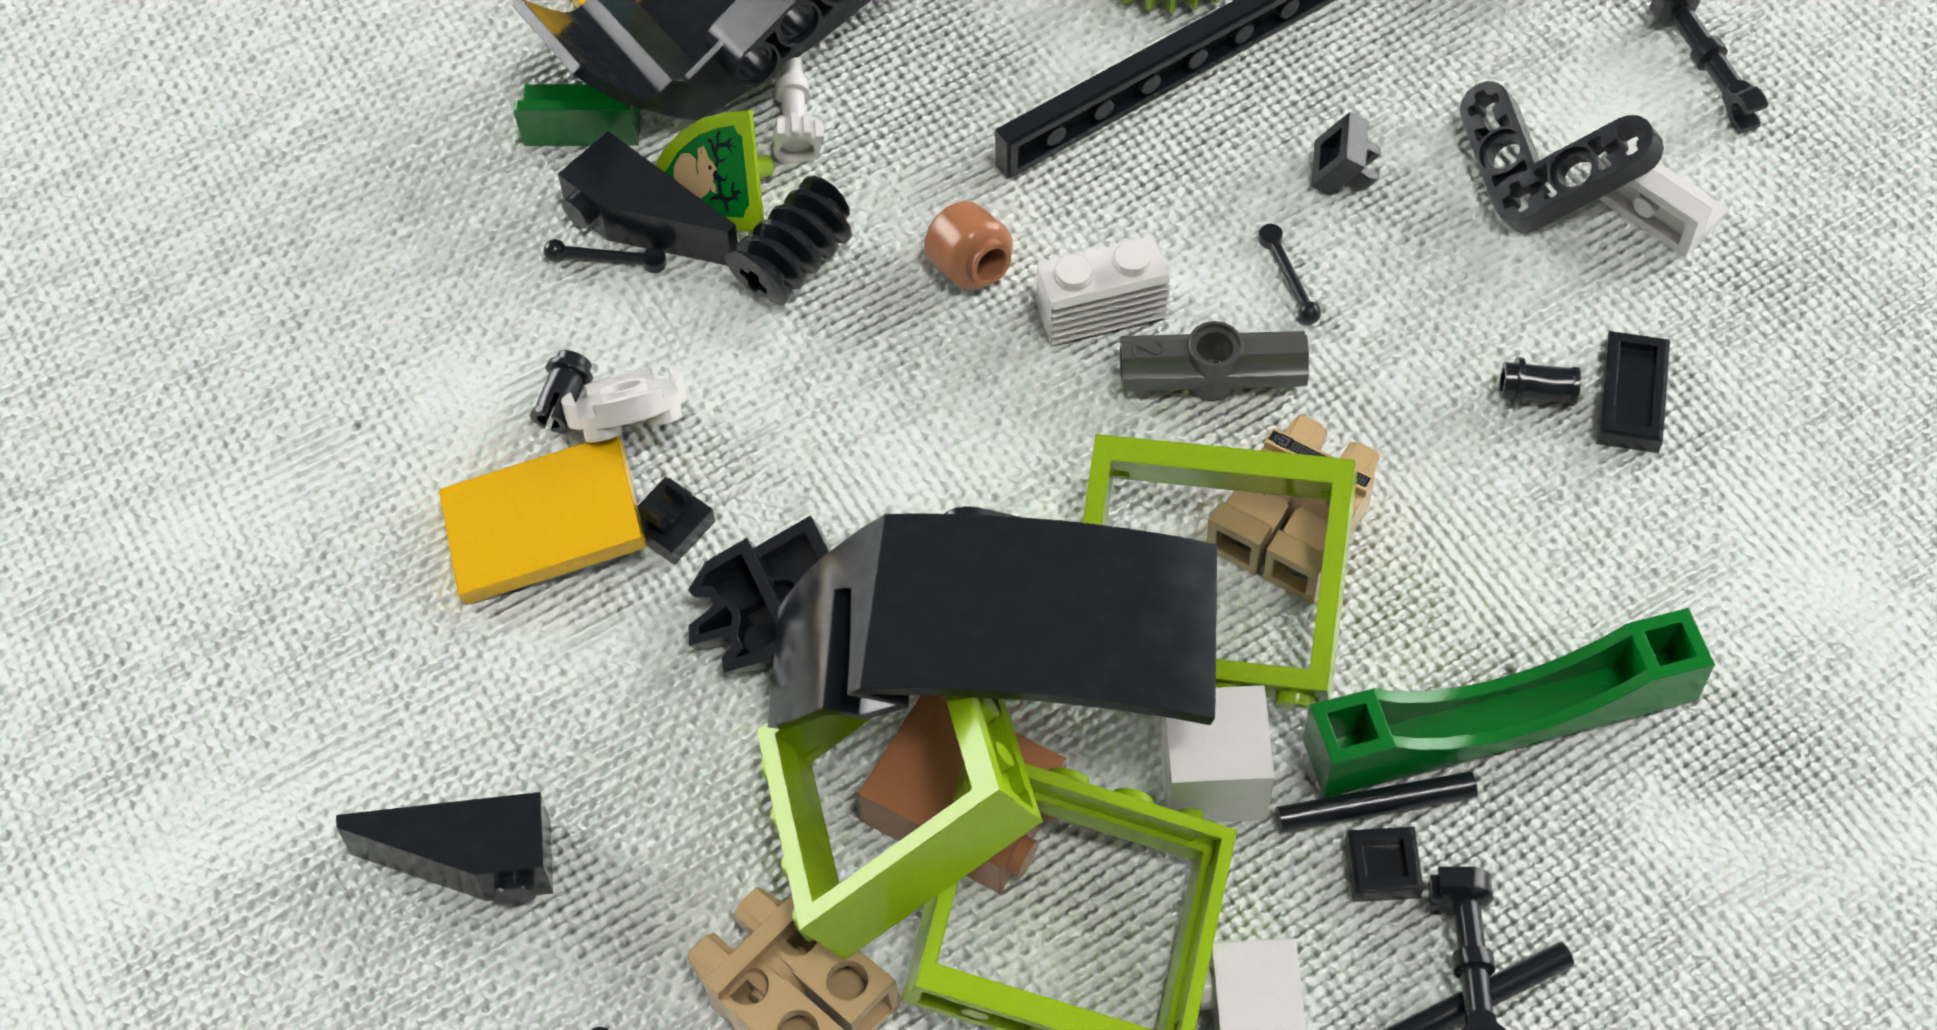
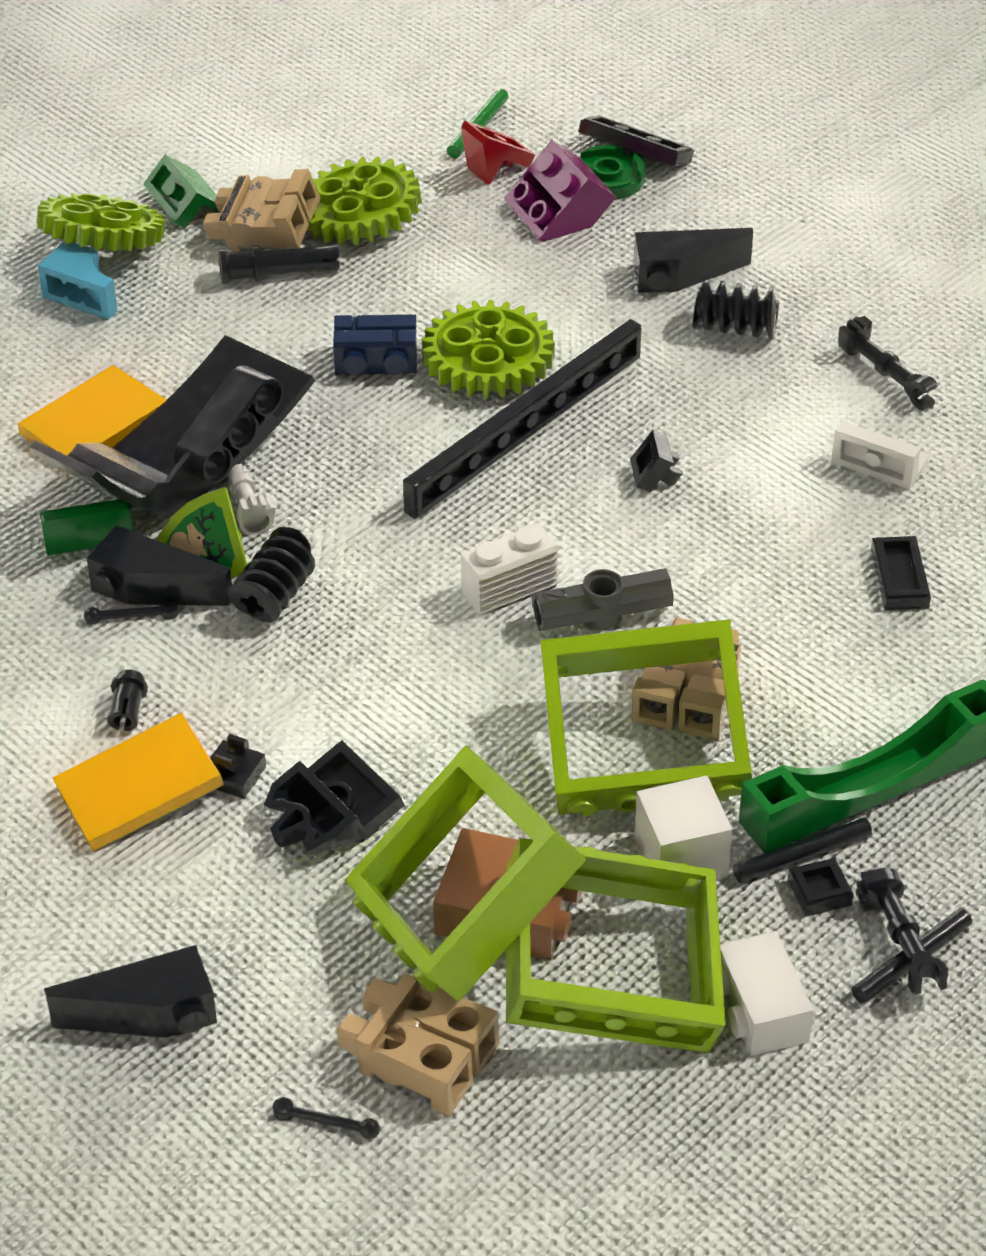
camera: 15 degrees left, 15 degrees down
(626, 400) = (168, 698): white plate -> none
(968, 245) = (403, 558): nougat head -> none
(999, 613) = (502, 740): black beam -> none
(1271, 238) = (617, 523): black hinge -> none
(1530, 173) = (789, 453): black beam -> none
(1539, 383) = (834, 576): black pin -> none

